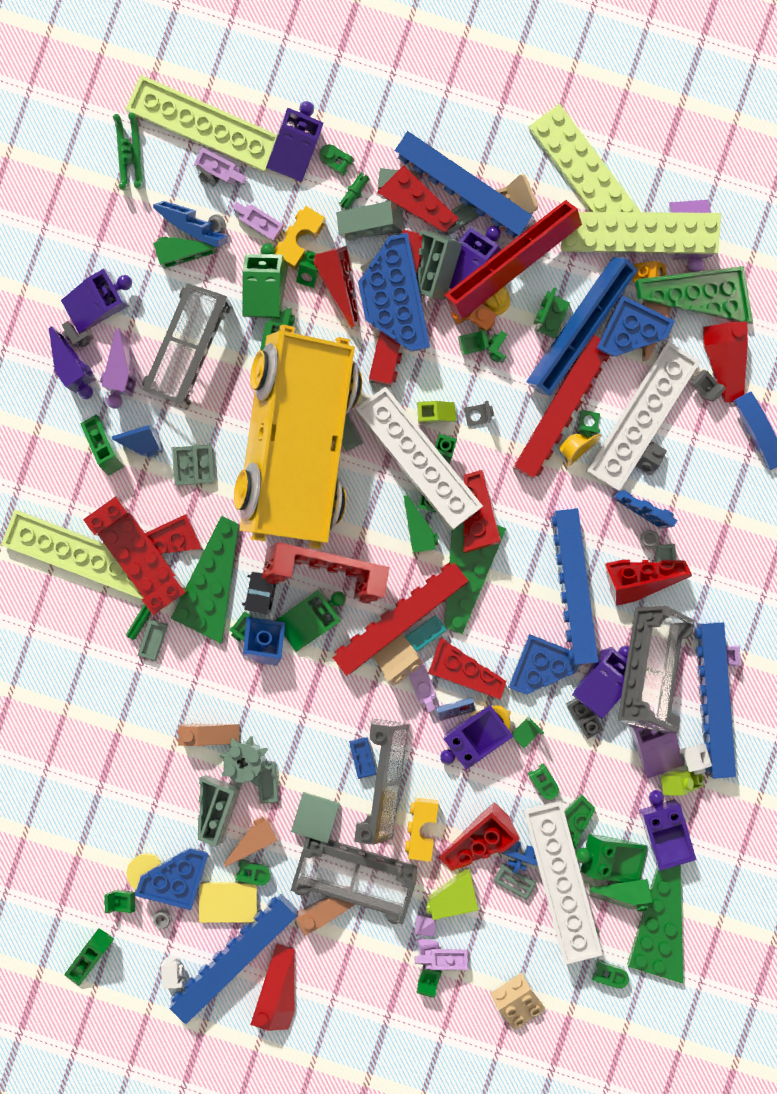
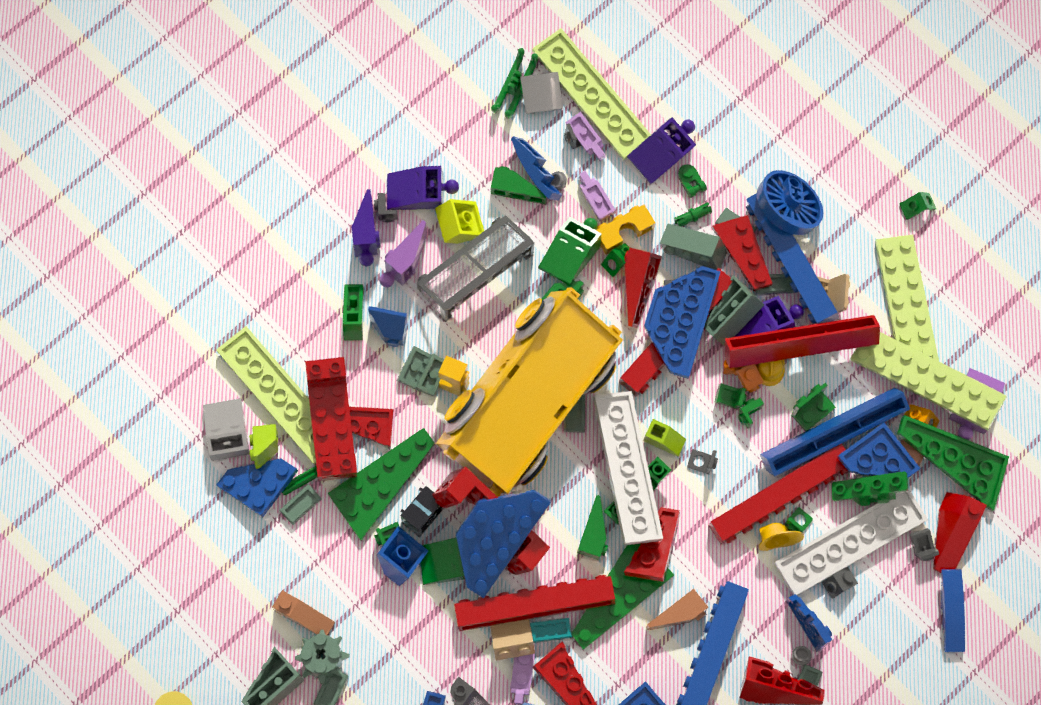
camera: 25 degrees right, 15 degrees down
(50, 611) = (225, 429): none -> light grey slope
(91, 606) = (264, 444): none -> lime slope
(106, 643) = (260, 486): none -> blue plate
(149, 310) = (459, 221): none -> neon yellow slope
(157, 147) = (542, 92): none -> light grey slope
(222, 458) = (454, 376): none -> yellow arch
(335, 584) = (494, 535): none -> blue plate
(428, 125) = (787, 193): none -> blue piece
(530, 555) = (681, 612): none -> nougat slope
(549, 72) = (917, 204): none -> green bracket
(639, 361) = (870, 489): none -> green bracket

